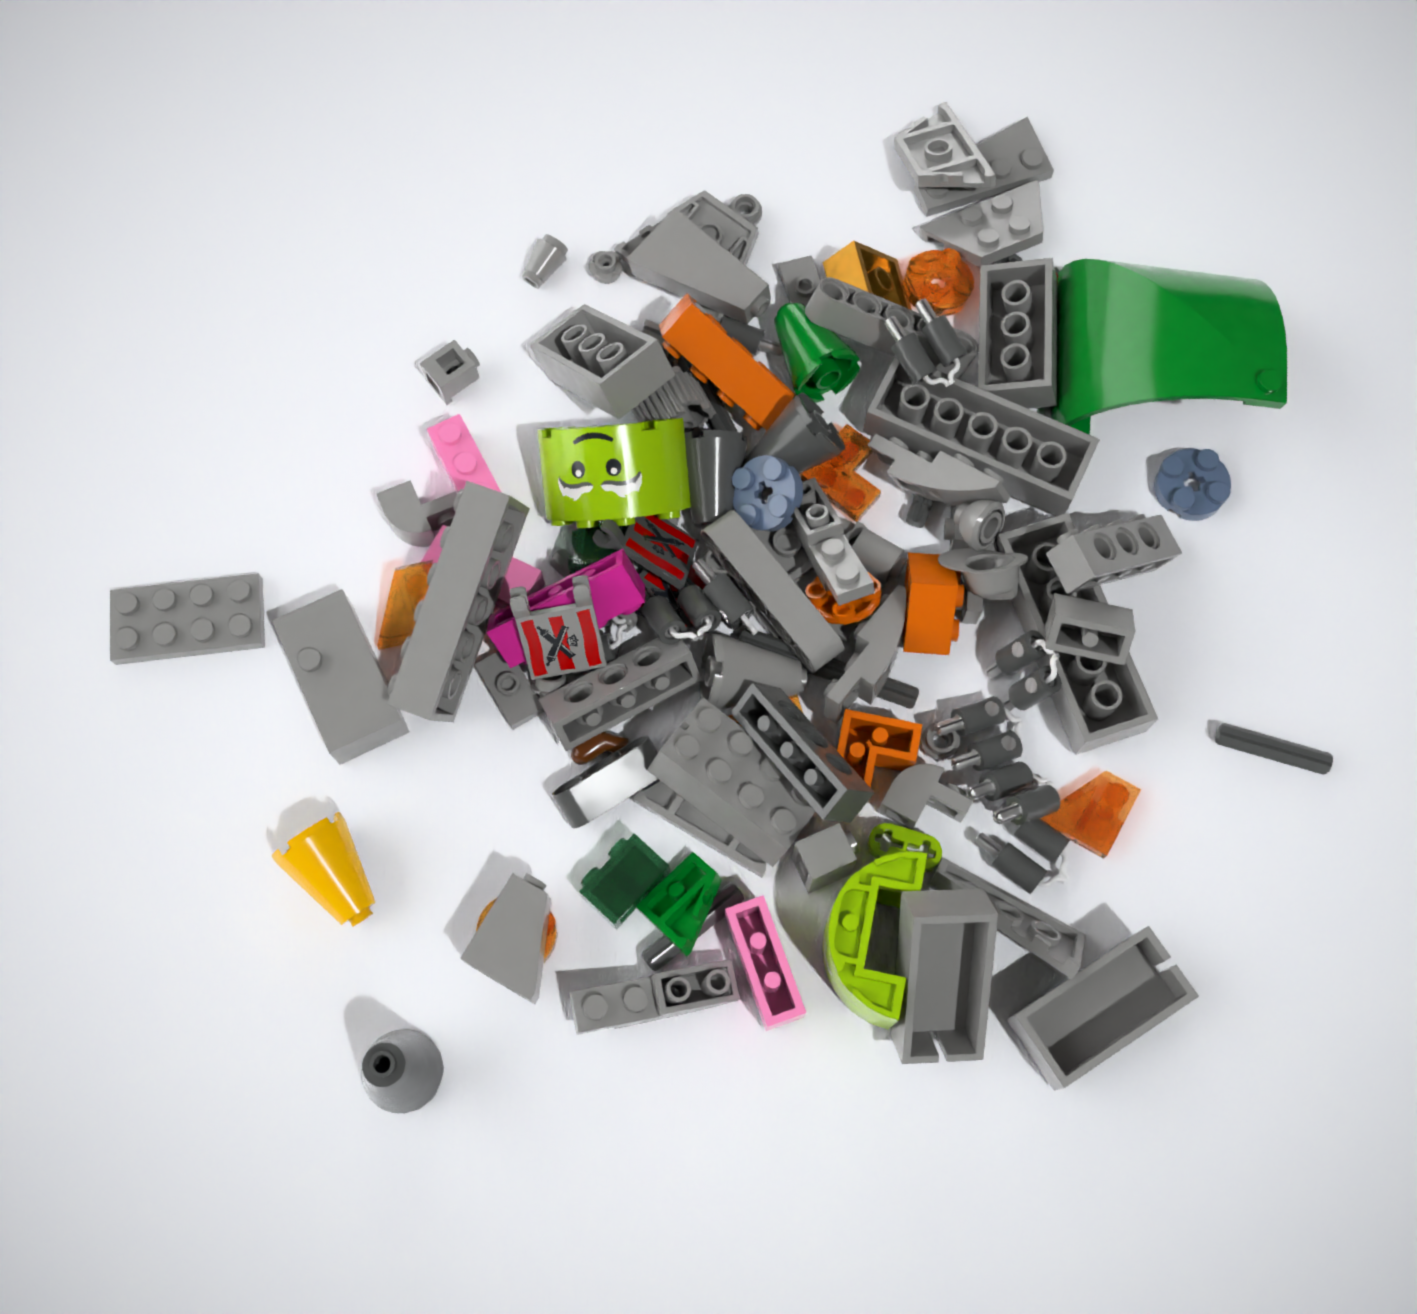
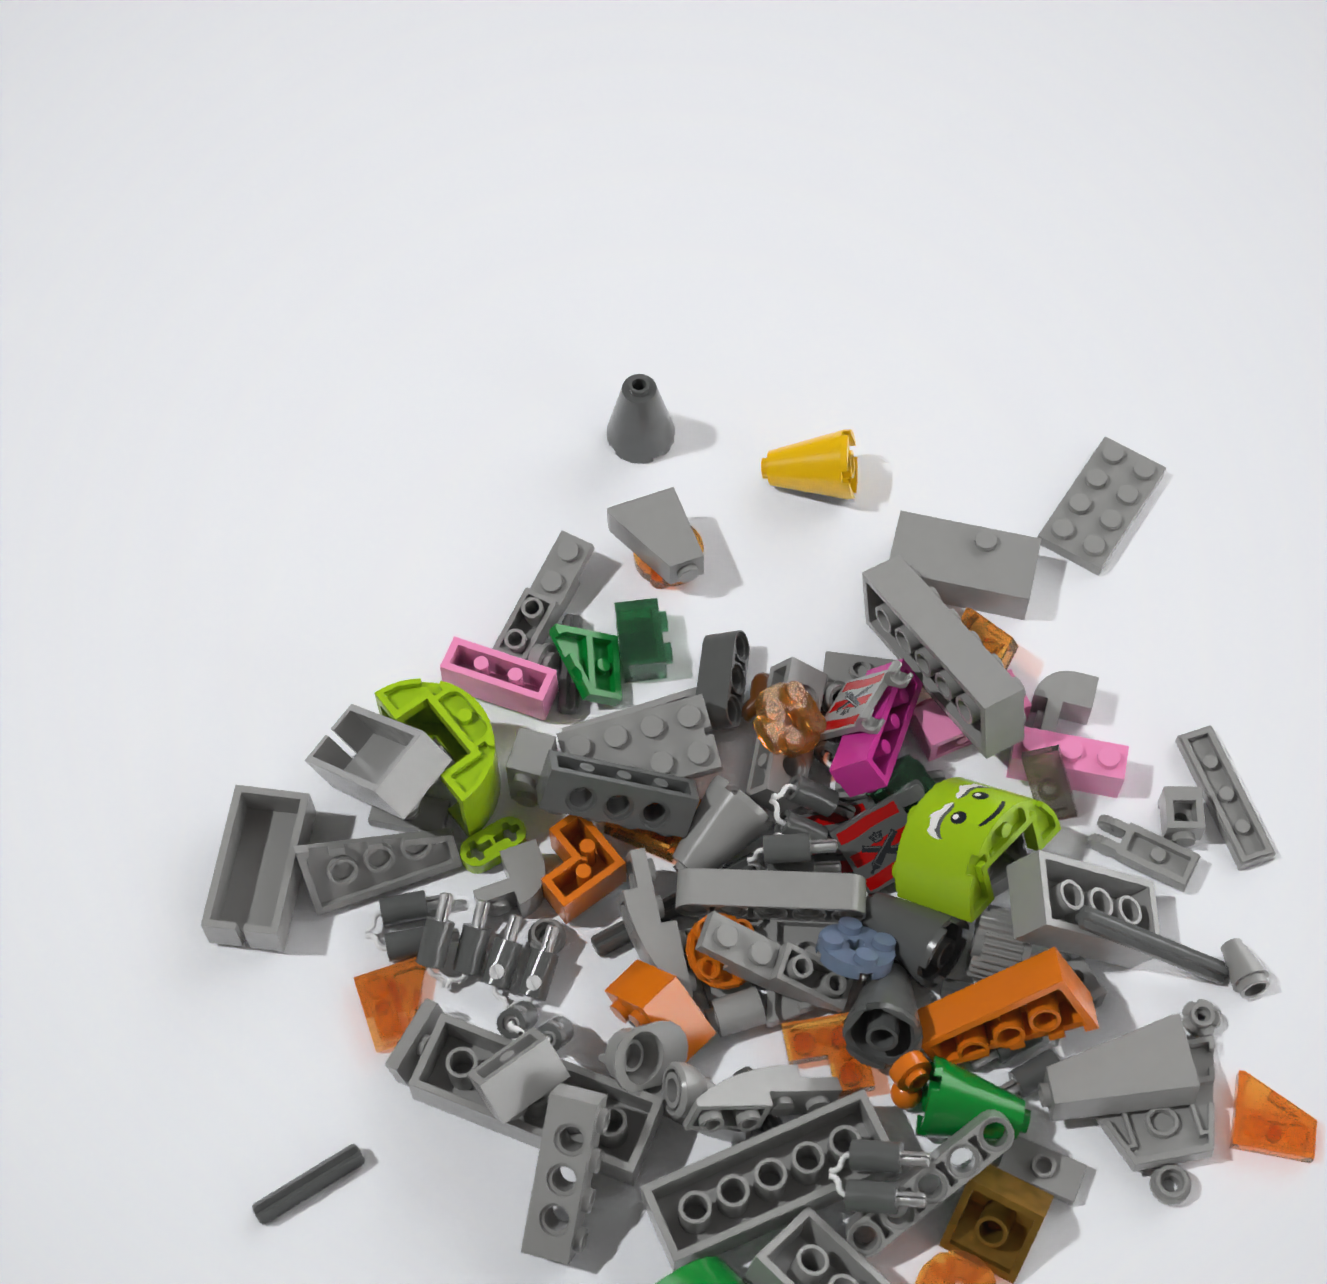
camera: 130 degrees right, 10 degrees down
(402, 363) = (1225, 797): none -> light grey tile
(501, 376) = (1145, 851): none -> light grey hinge
(504, 465) = (1050, 780): none -> clear smoke plate
(592, 302) = (1151, 944): none -> dark grey axle
(628, 666) = (805, 717): none -> clear orange plate
(647, 184) = (1270, 1123): none -> clear orange wing
(711, 948) = (545, 655): none -> light grey plate
(827, 397) = (909, 1076): none -> orange plate
(1110, 757) = (413, 1042): none -> light grey plate

